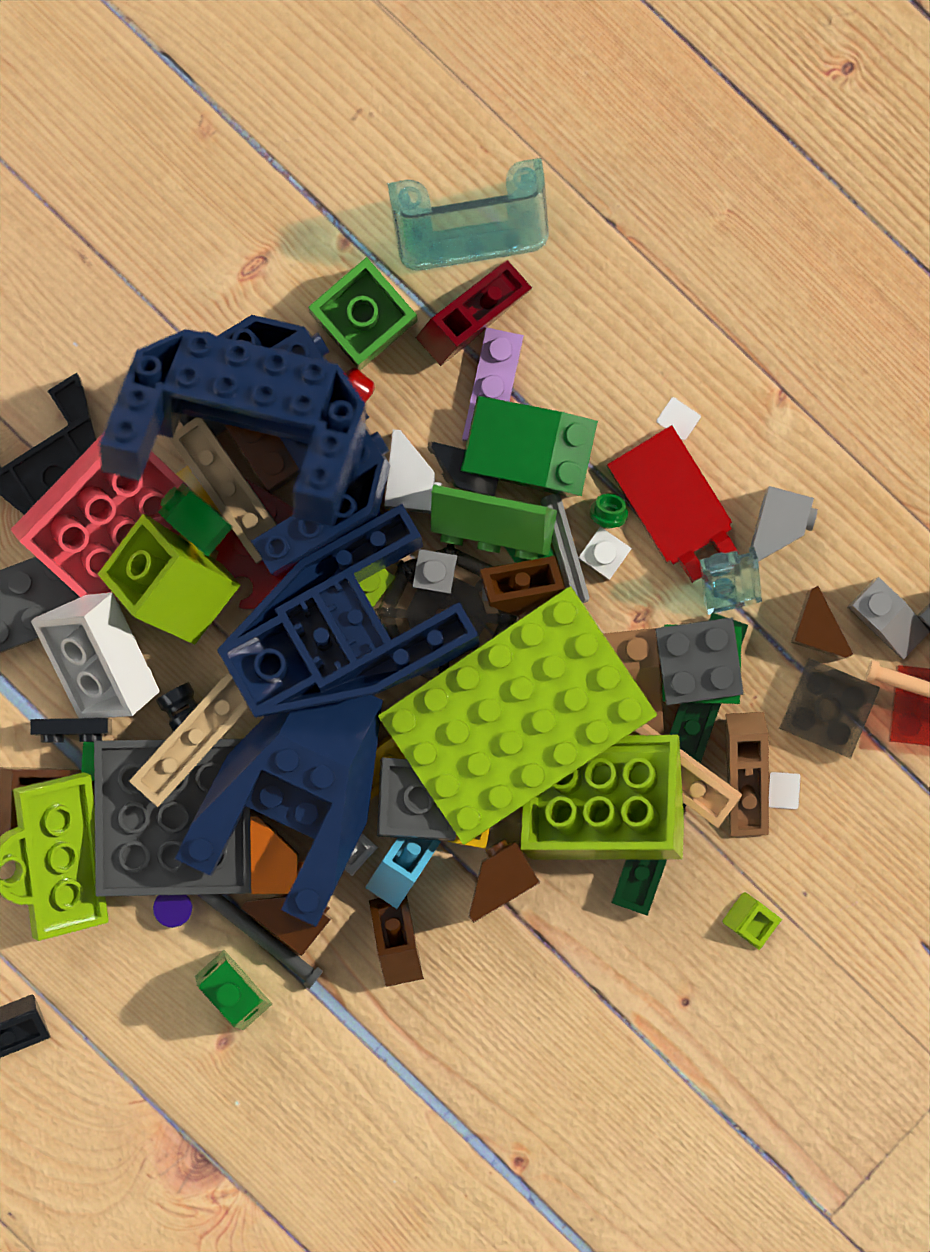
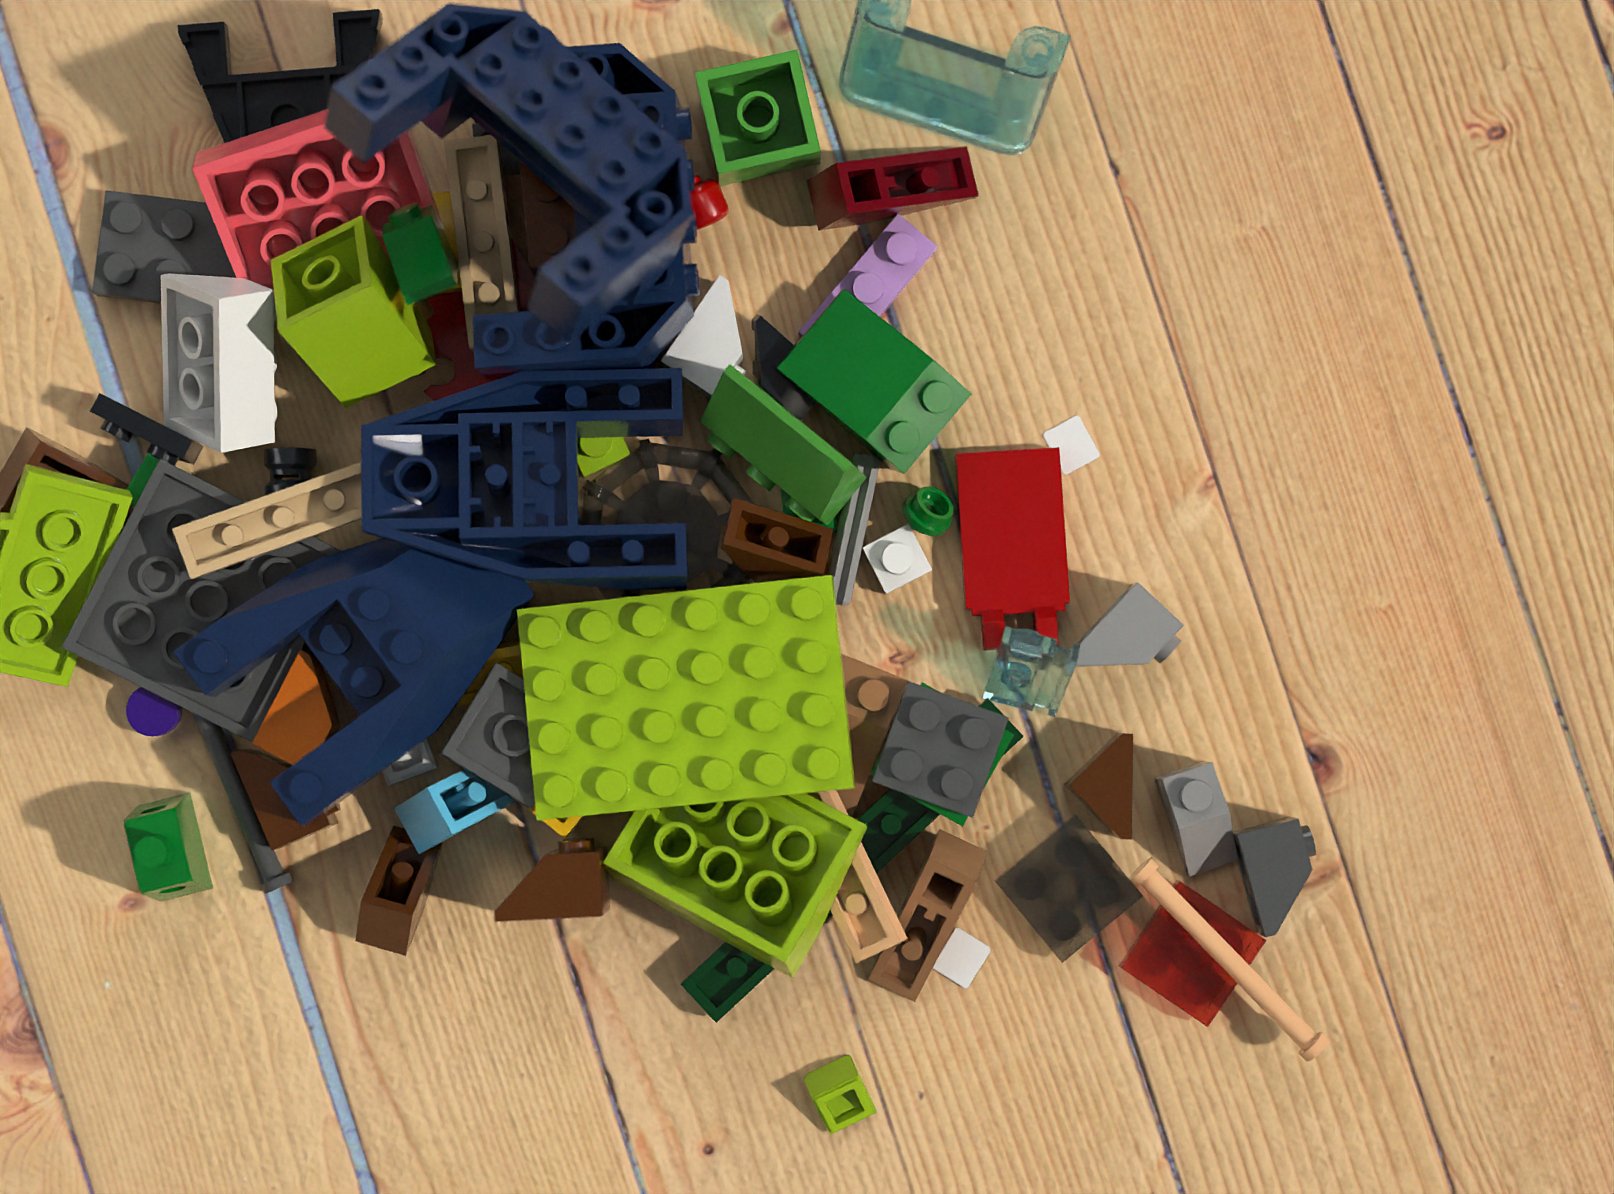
camera: 25 degrees right, 0 degrees up
(434, 571) = (679, 472): light grey plate -> none

